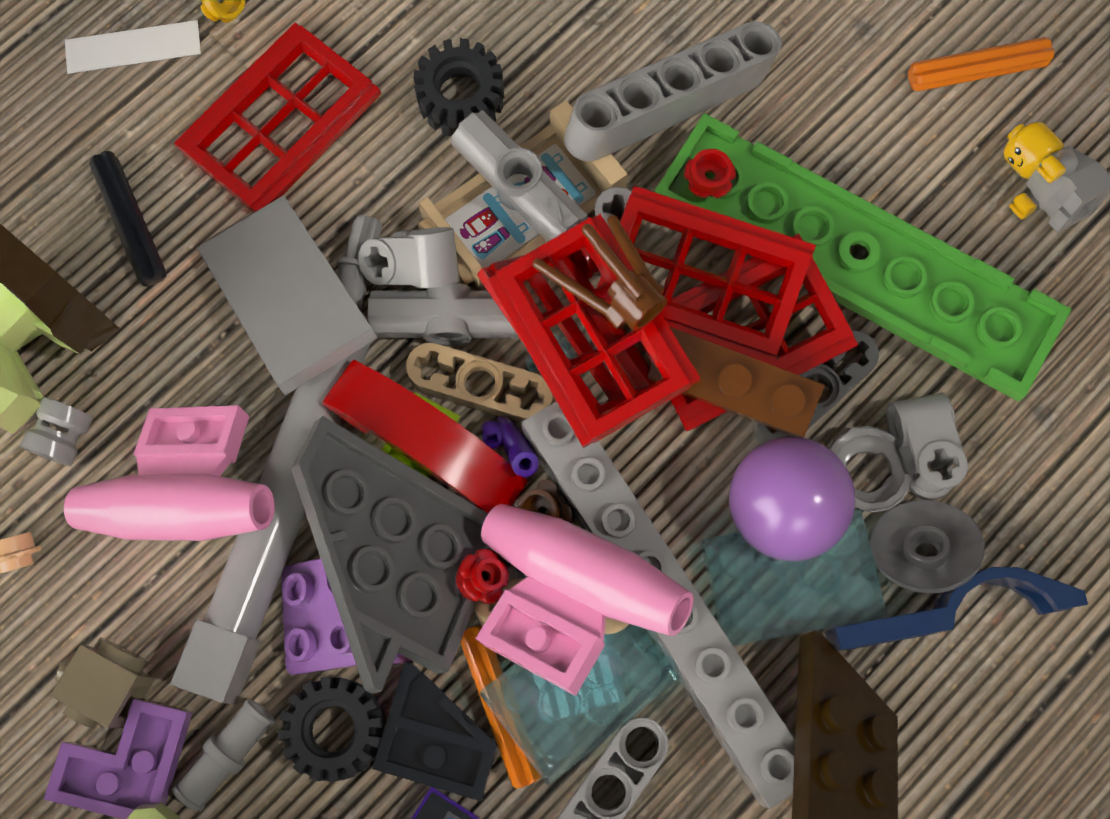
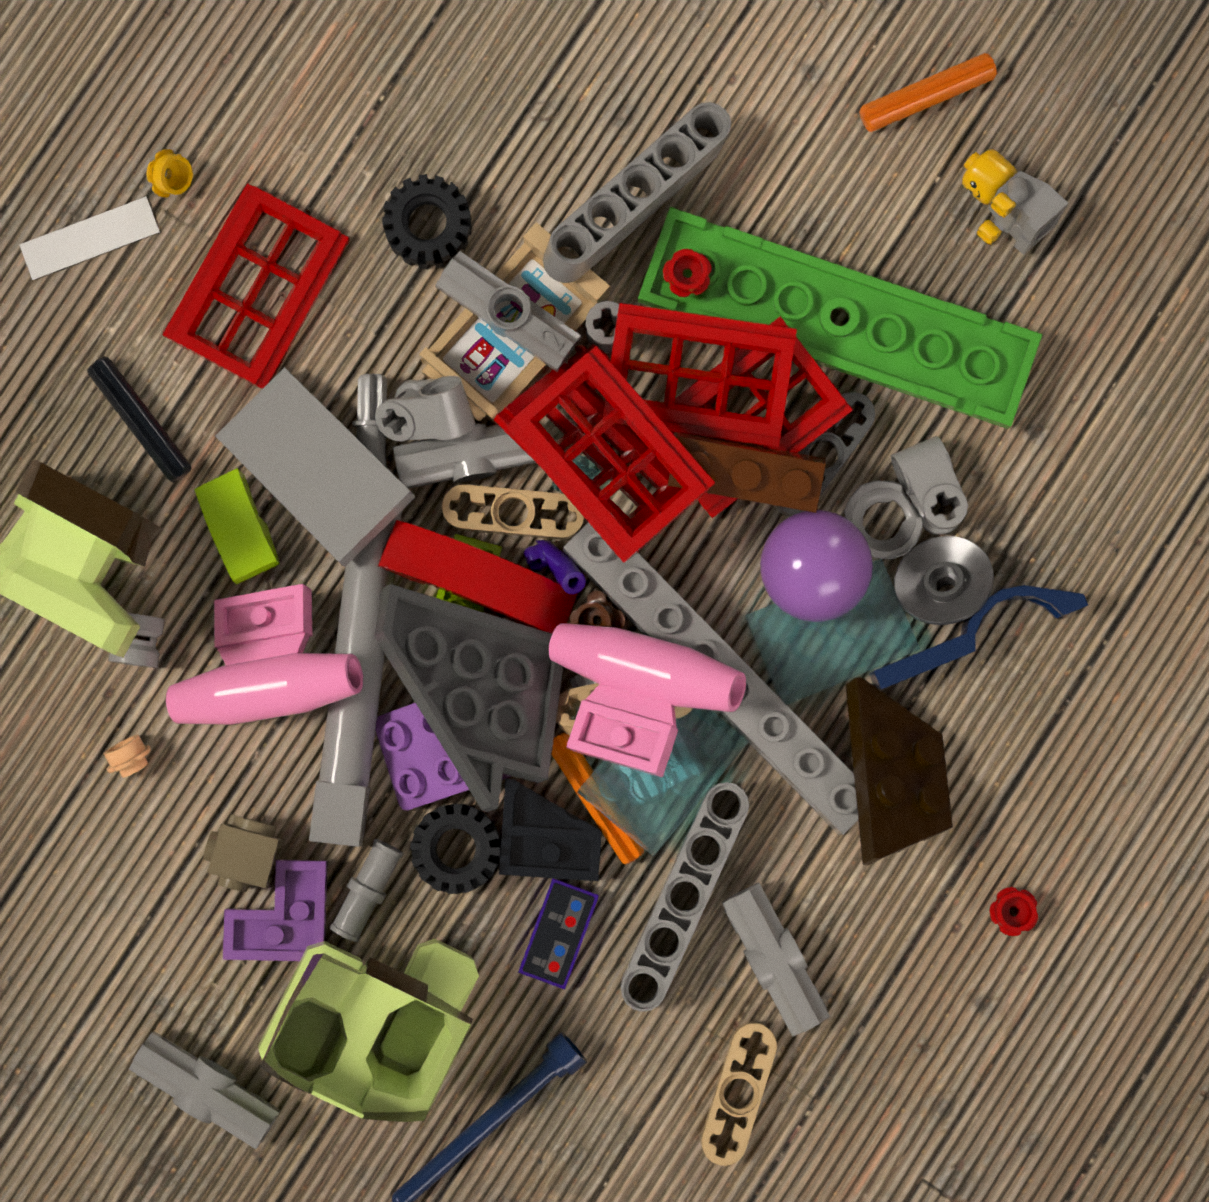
camera: 15 degrees left, 10 degrees up
(190, 339) = (236, 526): none -> lime slope
(470, 579) = (548, 696): red plate -> none
(634, 294) = (643, 425): reddish brown plant -> none

